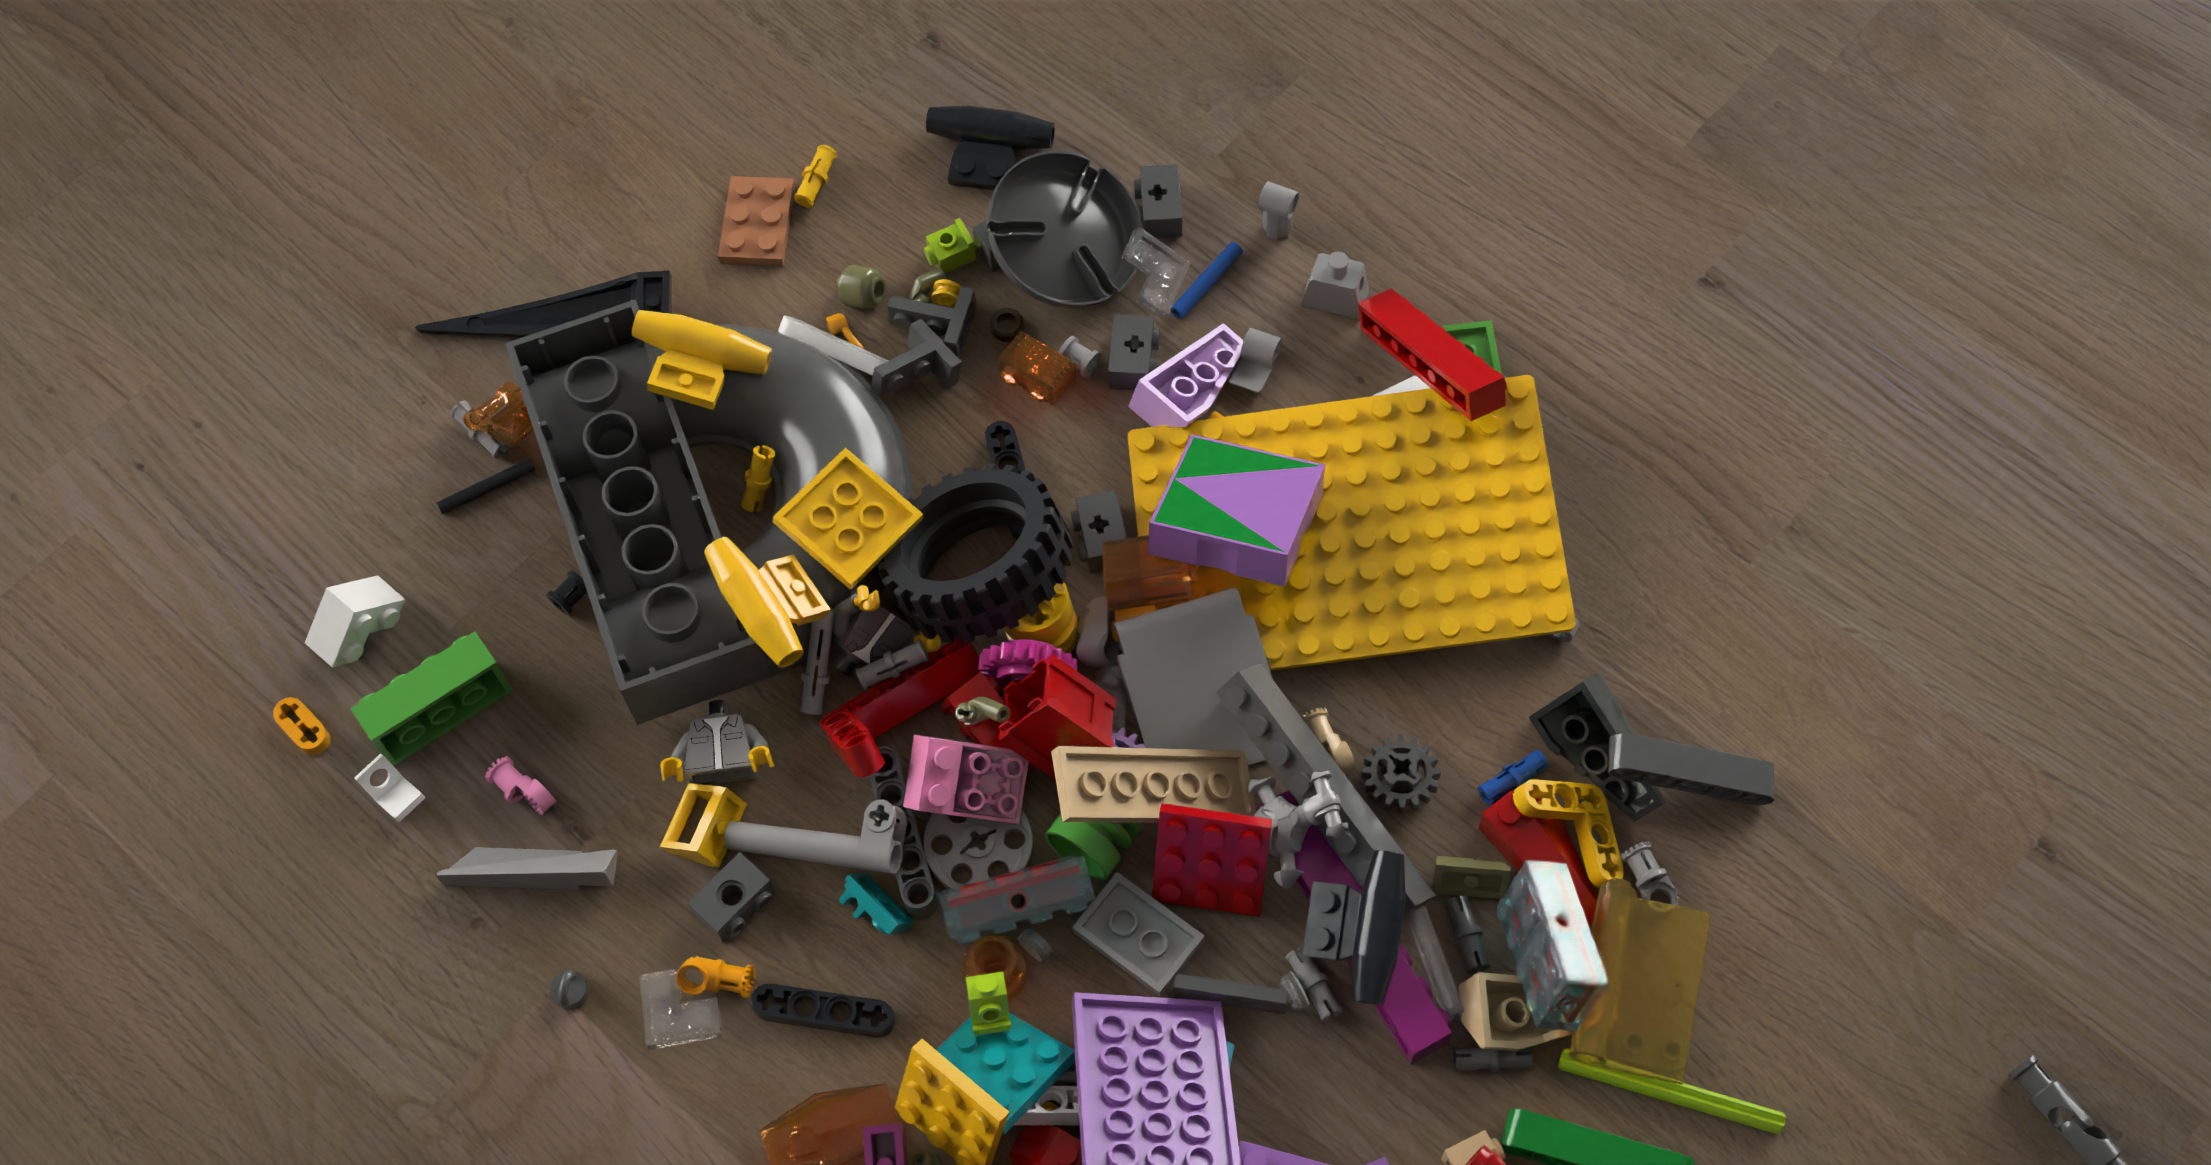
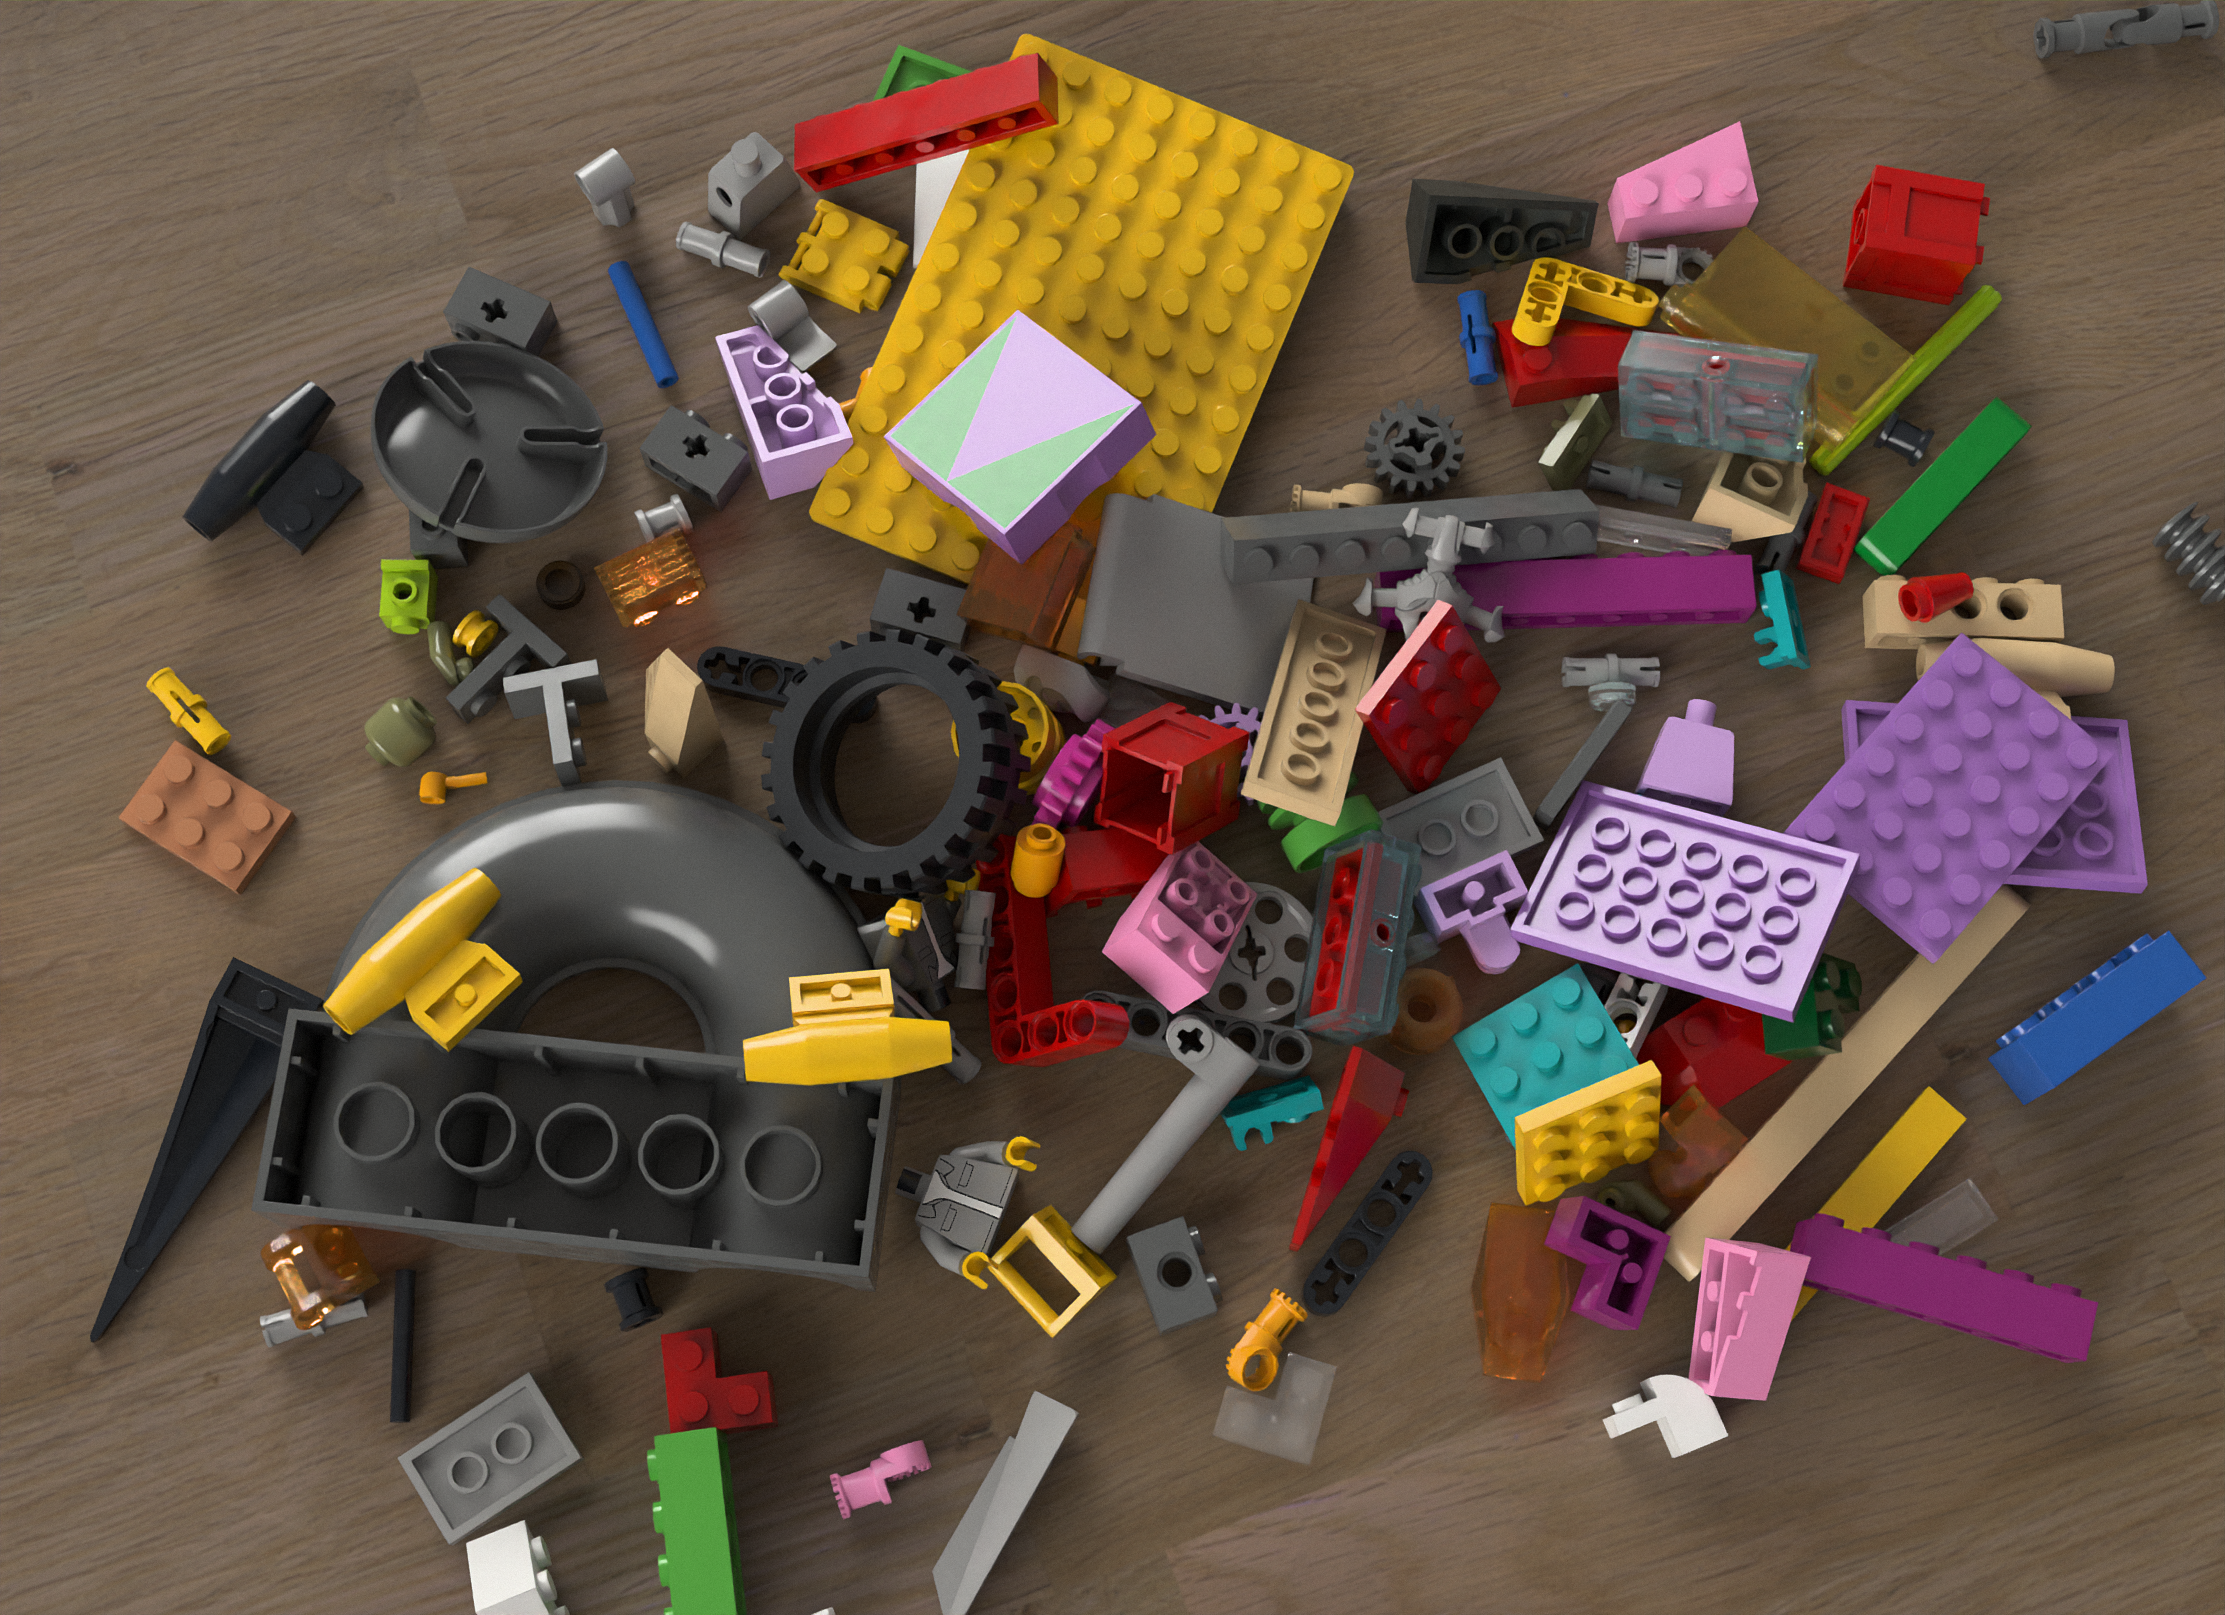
camera: 70 degrees left, 10 degrees up
(437, 565) = (490, 1458): none -> light grey plate
(526, 658) = (702, 1397): none -> red brick
(569, 989) = (1184, 1530): dark grey tile -> none
(757, 478) = (617, 984): yellow pin -> none
(831, 345) = (472, 804): white beam -> none
(847, 518) = (775, 888): yellow plate -> none
(898, 960) = (1358, 1116): none -> red wedge
(948, 421) = (678, 716): none -> tan wedge
(957, 667) = (1037, 860): none -> light orange brick
(981, 709) = (1115, 854): olive arm -> none
(988, 1003) = (1478, 1031): lime brick -> none
(1084, 967) = (1476, 906): none -> lavender brick
(1163, 268) = (603, 362): clear plate -> none
(1274, 1067) = (1691, 762): none -> lavender torso
(1284, 296) = (723, 249): none -> light grey pin
(1324, 368) = (846, 258): none -> yellow plate
(1361, 925) = (1598, 574): black plate -> none
(1421, 1086) = (1781, 605): none -> teal plate
(1512, 1090) = (1833, 533): none -> red plate
(1619, 1108) = (1904, 438): none -> black bush
(1691, 769) = (1578, 151): dark grey beam -> none
(1716, 862) = (1687, 191): none -> bright pink wedge
(1782, 1035) = (1915, 235): none -> red container

